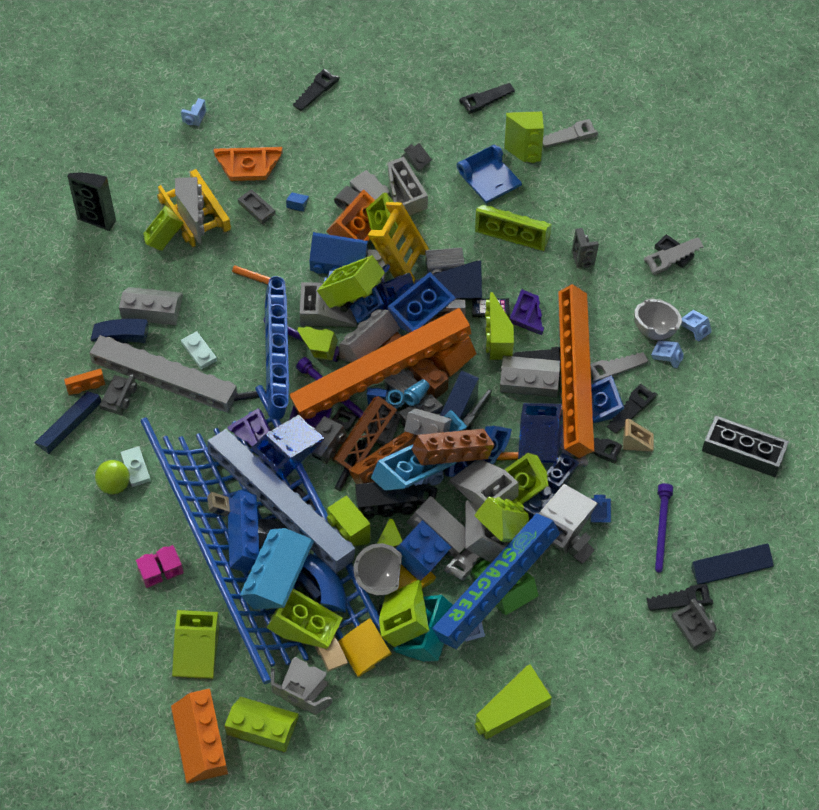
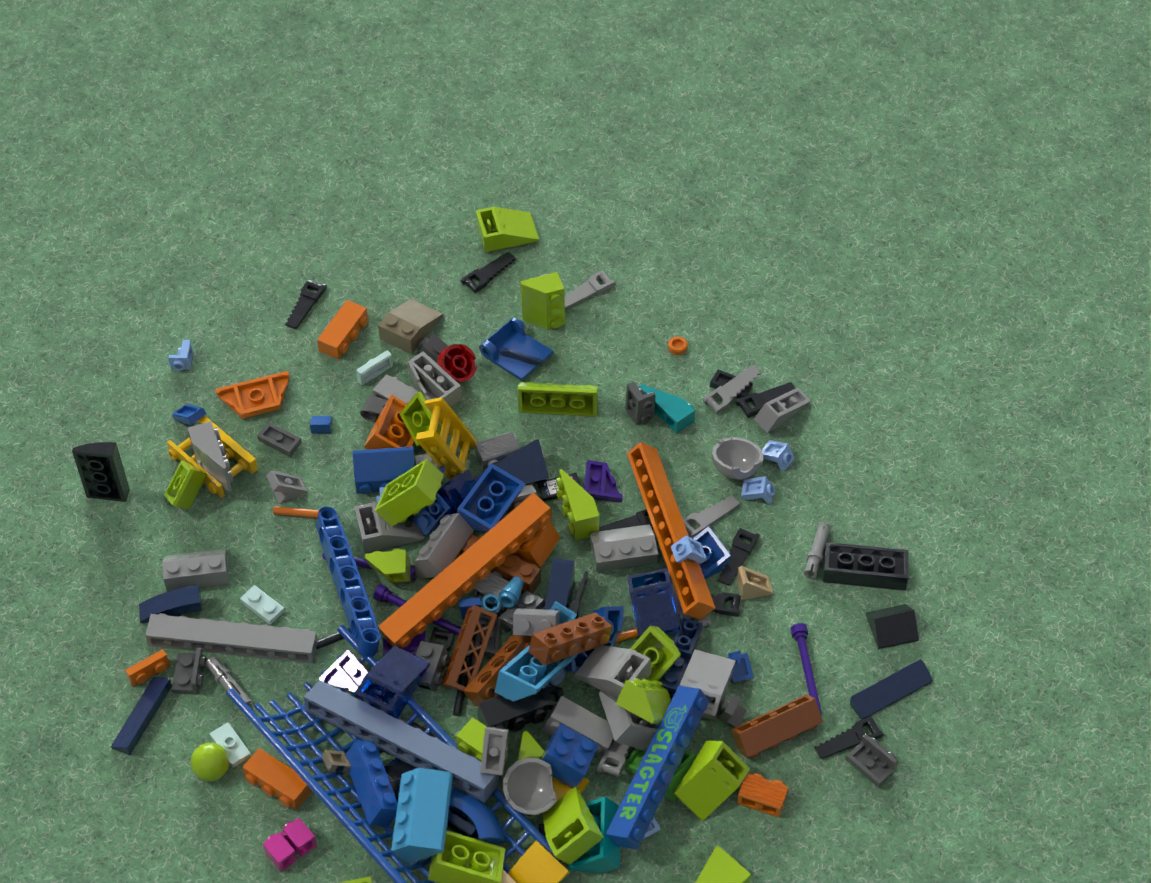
camera: 15 degrees left, 5 degrees down
(146, 405) = (223, 677): none -> light grey pin
(163, 506) = (276, 779): none -> orange brick
(184, 166) = (188, 414): none -> blue tile
(249, 249) = (285, 486): none -> light grey slope
(341, 120) = (343, 329): none -> orange brick
(354, 530) = (494, 751): none -> light grey slope
(358, 161) = (374, 367): none -> light aqua plate
(400, 129) = (408, 325): none -> dark tan slope
(432, 174) = (458, 362): none -> red cylinder
(495, 182) = (521, 356): none -> black piece
(513, 60) = (505, 228): none -> lime slope
(542, 603) = (711, 778): none -> lime slope
(584, 391) = (689, 549): none -> light blue bracket
(586, 629) = (763, 794): none -> orange brick
(611, 260) = (671, 409): none -> teal slope
(617, 571) = (777, 726): none -> dark orange brick
(636, 204) = (677, 345): none -> orange tile
(701, 271) = (760, 399): none -> black piece
(701, 427) = (815, 556): none -> light grey pin
(712, 284) = (781, 409): none -> light grey slope
(753, 507) = (893, 626): none -> black slope

